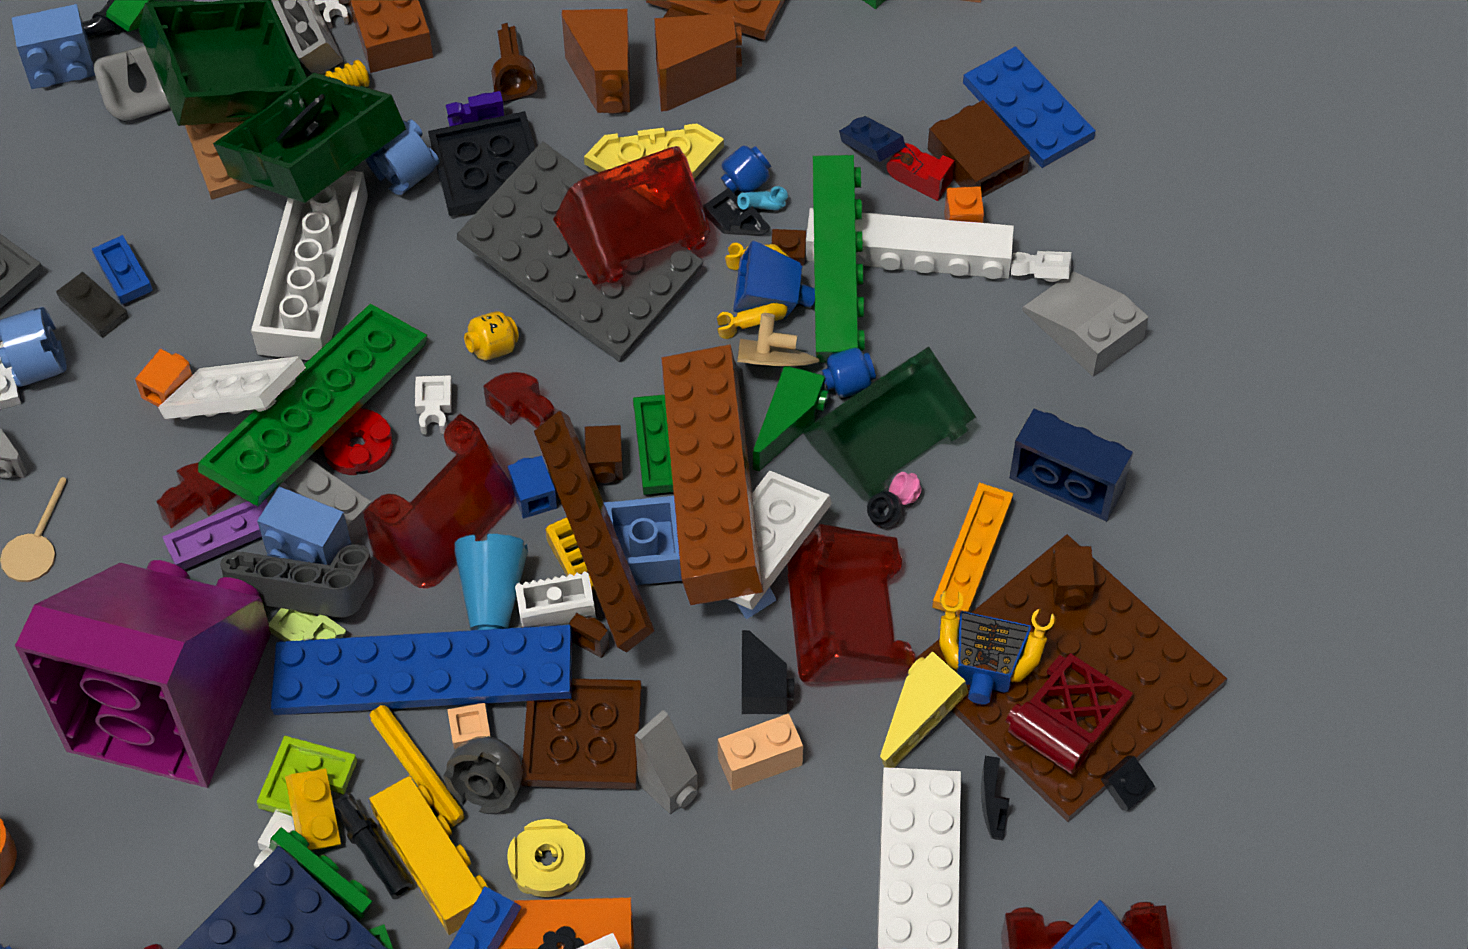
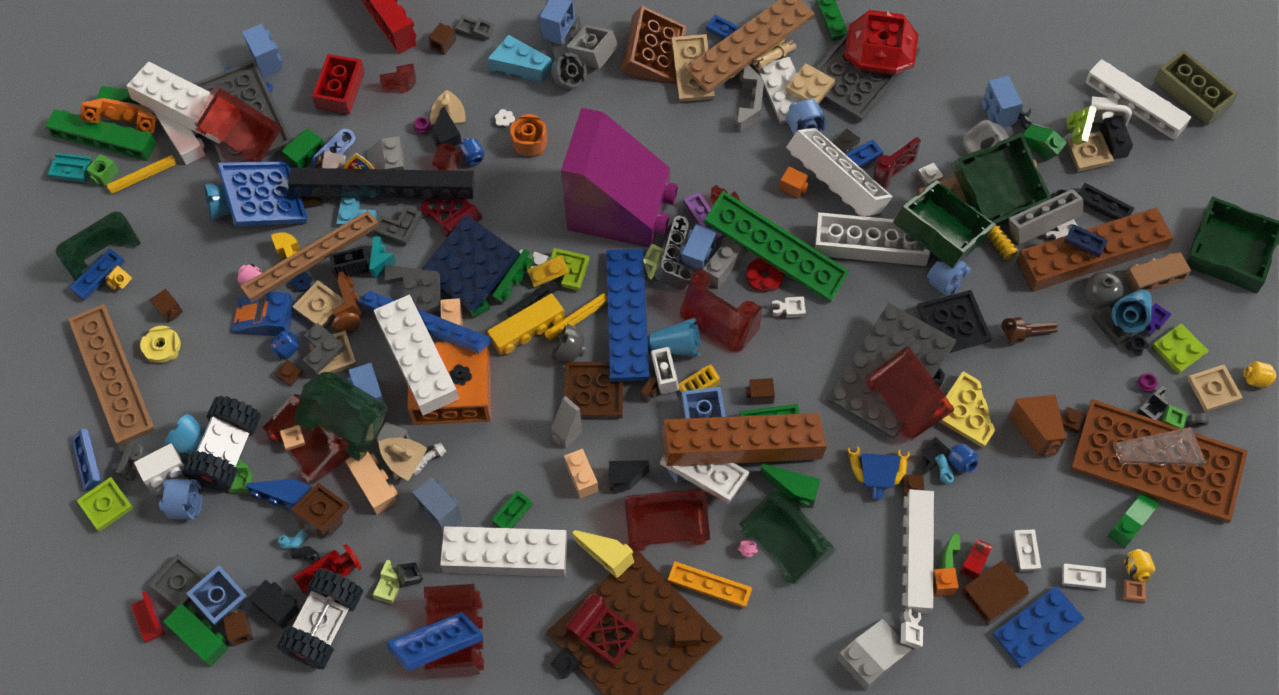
camera: 90 degrees right, 5 degrees up
(31, 555) = (693, 139): tan piece -> none
(162, 299) = (839, 172): none -> white brick
(164, 215) = (889, 166): none -> dark red piece
(178, 175) = (930, 174): none -> white plate
(232, 388) = (780, 207): white plate -> none
(305, 122) = (957, 222): black dish -> none
(468, 723) = (597, 338): light nougat plate -> none
(479, 108) = (991, 317): dark purple plate -> none
(491, 335) = (833, 331): yellow head -> none
(518, 396) = (793, 348): clear red brick -> none
(532, 486) = (739, 357): blue brick -> none
(553, 879) = (529, 387): light yellow plate -> none
(594, 532) = (703, 382): reddish brown plate -> none
(600, 55) = (1033, 374): dark orange slope -> none
(772, 347) = (831, 473): tan shield -> none
(834, 877) = (512, 511): none -> green plate
(835, 255) = (895, 503): green brick -> none
(849, 372) = (822, 516): blue head -> none
(872, 138) = (995, 529): dark blue plate -> none
(876, 509) = (733, 536): black plate -> none
(905, 105) = (1027, 550): none -> white plate
(915, 203) = (951, 548): none -> bright green slope
(947, 40) = (1084, 576): none -> white plate
(990, 650) = (637, 584): torso -> none
(993, 806) = (562, 589): black slope -> none
(1070, 464) = (763, 635): dark blue brick -> none

